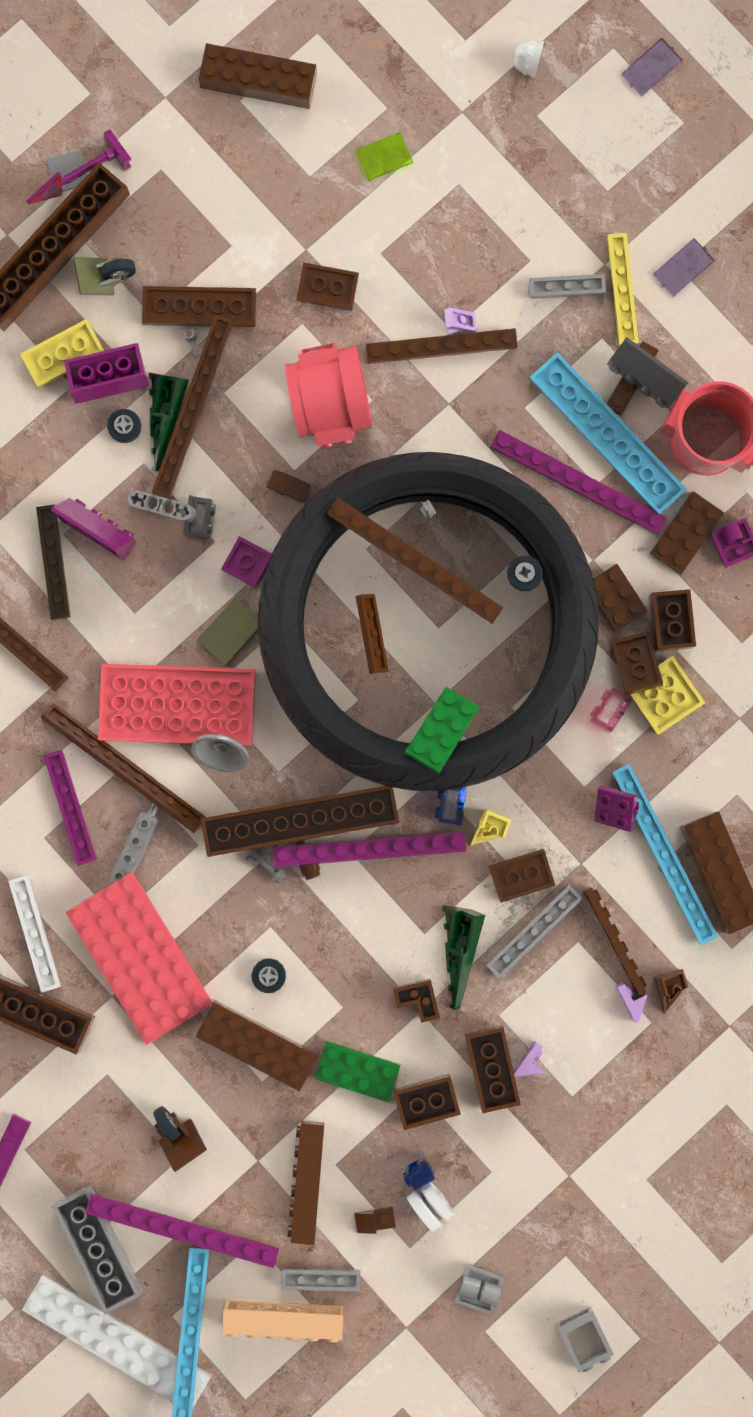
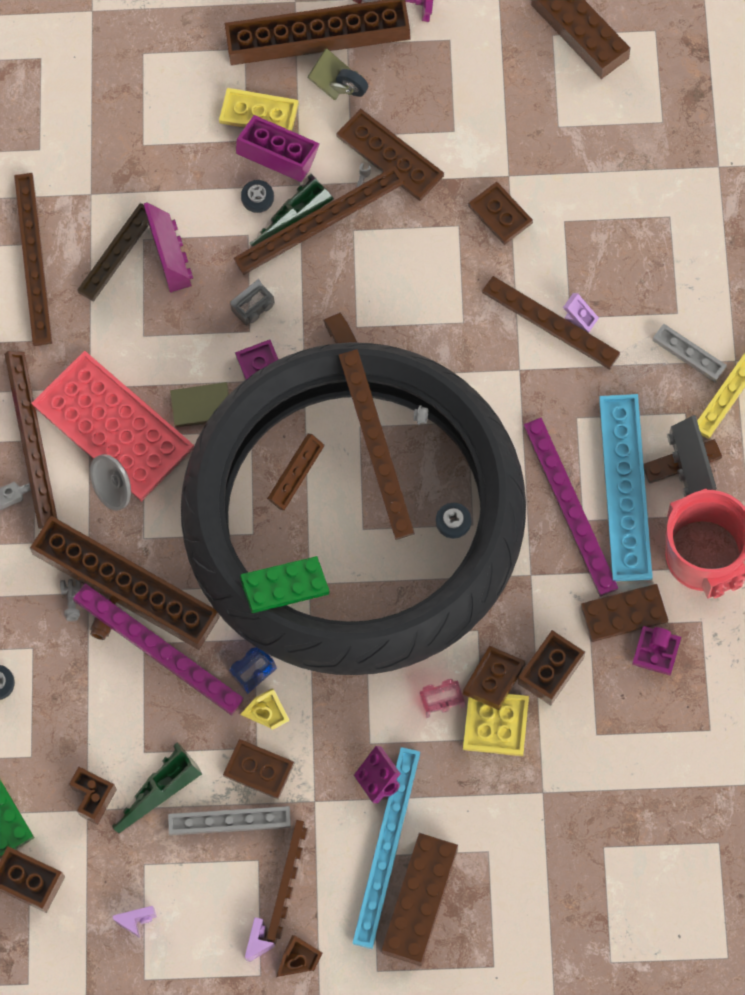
camera: 50 degrees right, 15 degrees down
(161, 506) = (231, 272): light grey beam -> none
(328, 394) = (426, 284): coral cylinder -> none
(384, 156) = (628, 154): clear neon green piece -> none
(492, 1069) = (100, 897): reddish brown brick -> none
(617, 598) = (523, 617): reddish brown plate -> none

